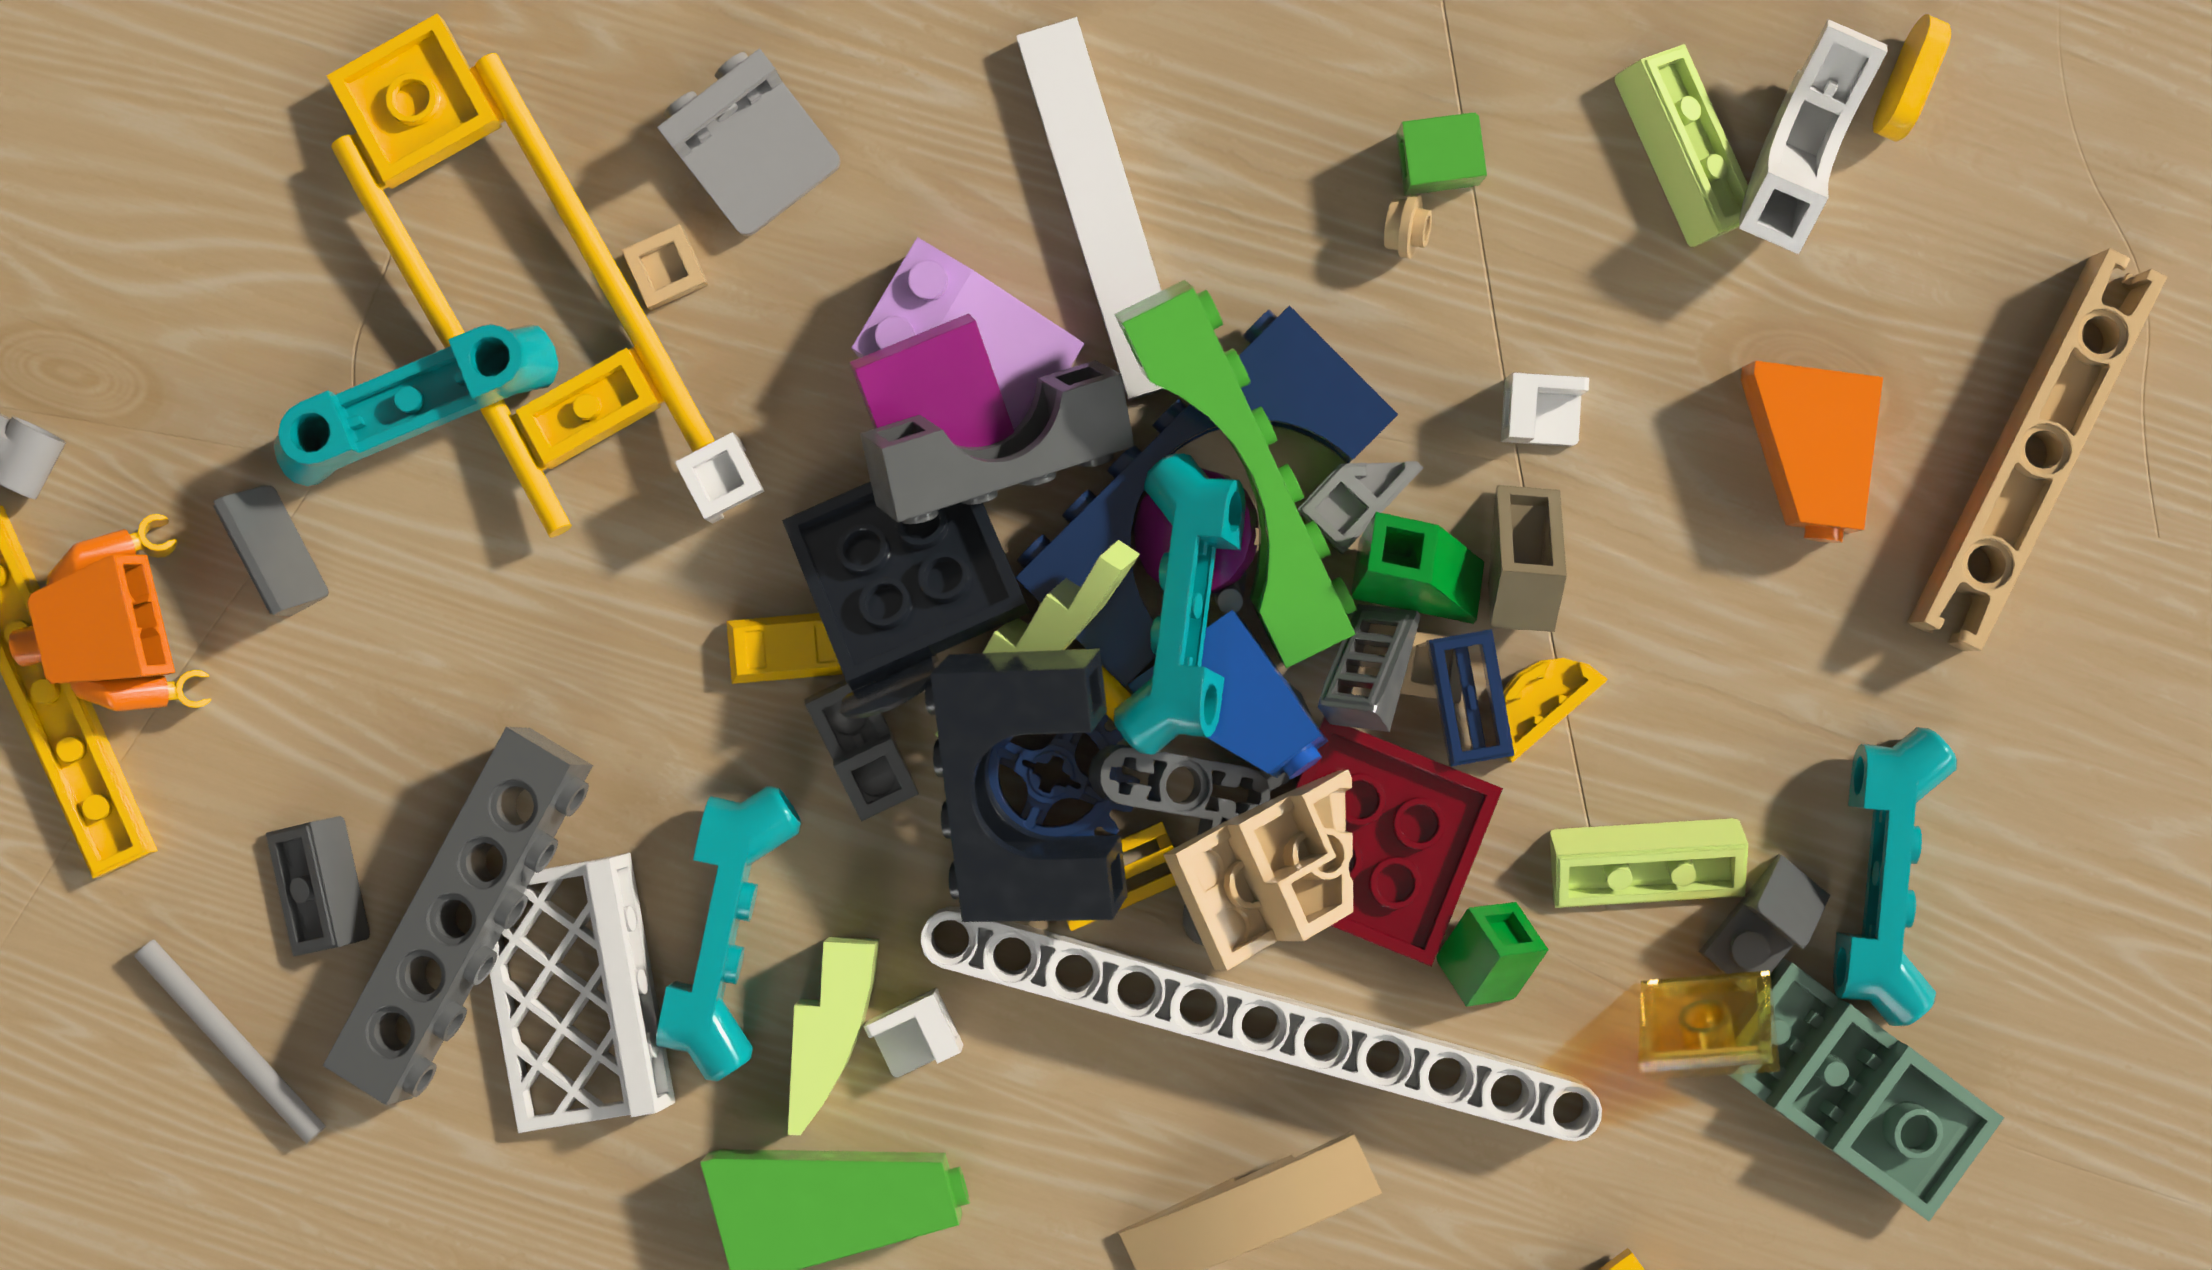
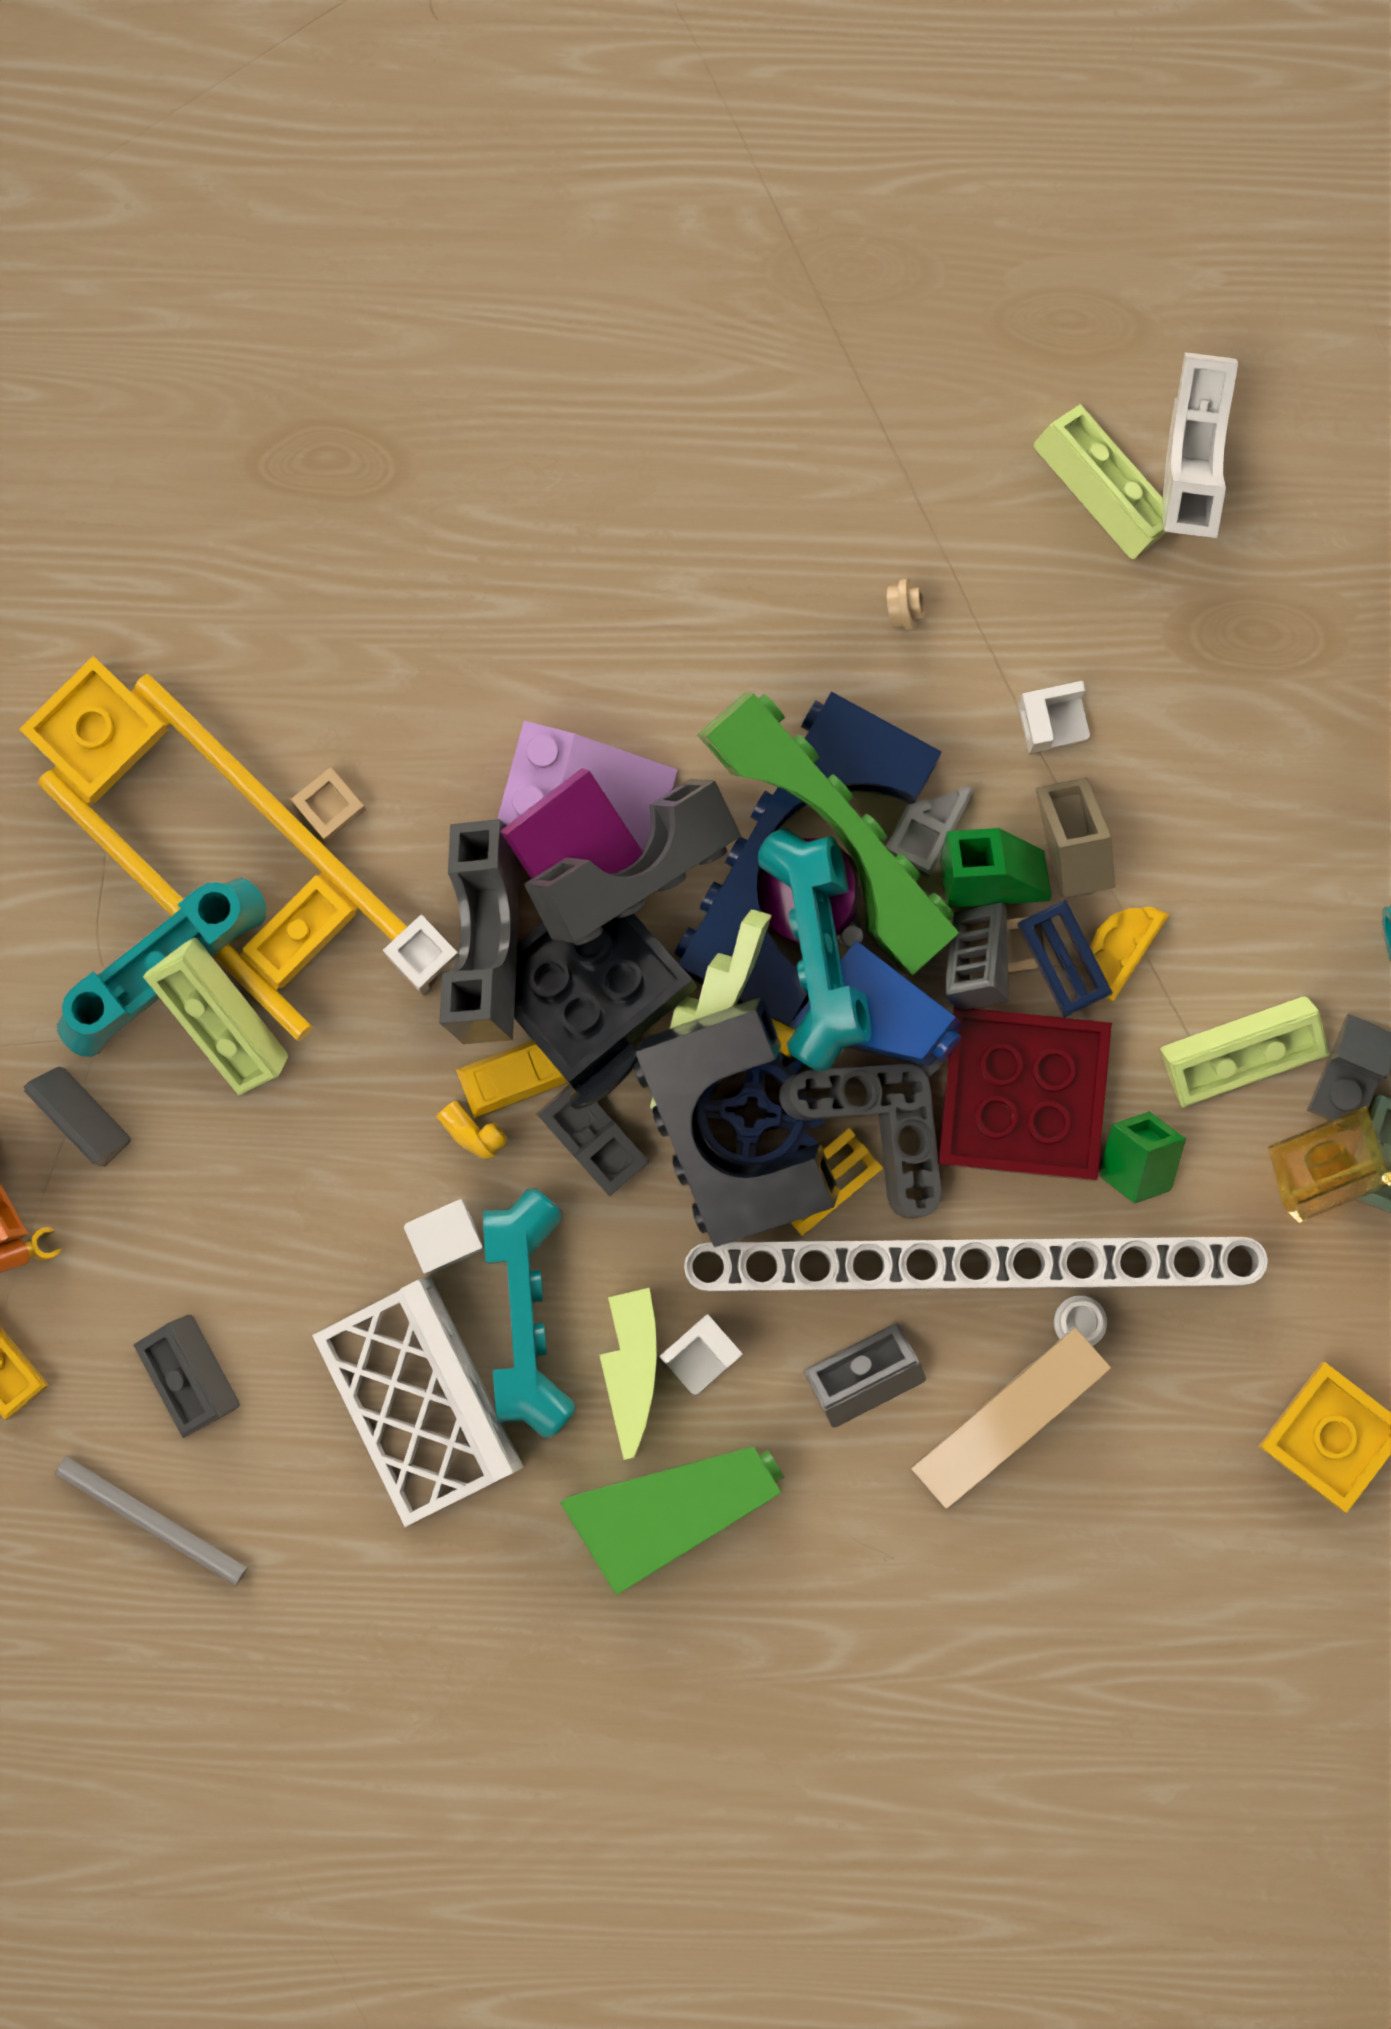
camera: 15 degrees left, 5 degrees down
(368, 1045) = (264, 1488): dark grey brick -> none
(463, 482) = (217, 1017): none -> yellowish green slope
(655, 814) = (444, 1237): none -> white panel
(730, 716) = (467, 1134): none -> yellow arm
(749, 142) = (368, 687): light grey bracket -> none
(778, 537) = (482, 983): none -> dark grey arch
(1092, 182) = (649, 645): white tile -> none
(1097, 1110) = (865, 1375): none -> dark grey slope
(1269, 872) = (946, 1140): tan slope -> none
(1367, 1117) = (1083, 1314): none -> white plate
(1441, 153) = (915, 541): bright green panel -> none
(1816, 443) = (1276, 681): orange slope -> none
(1912, 78) = (1265, 379): yellow tile -> none

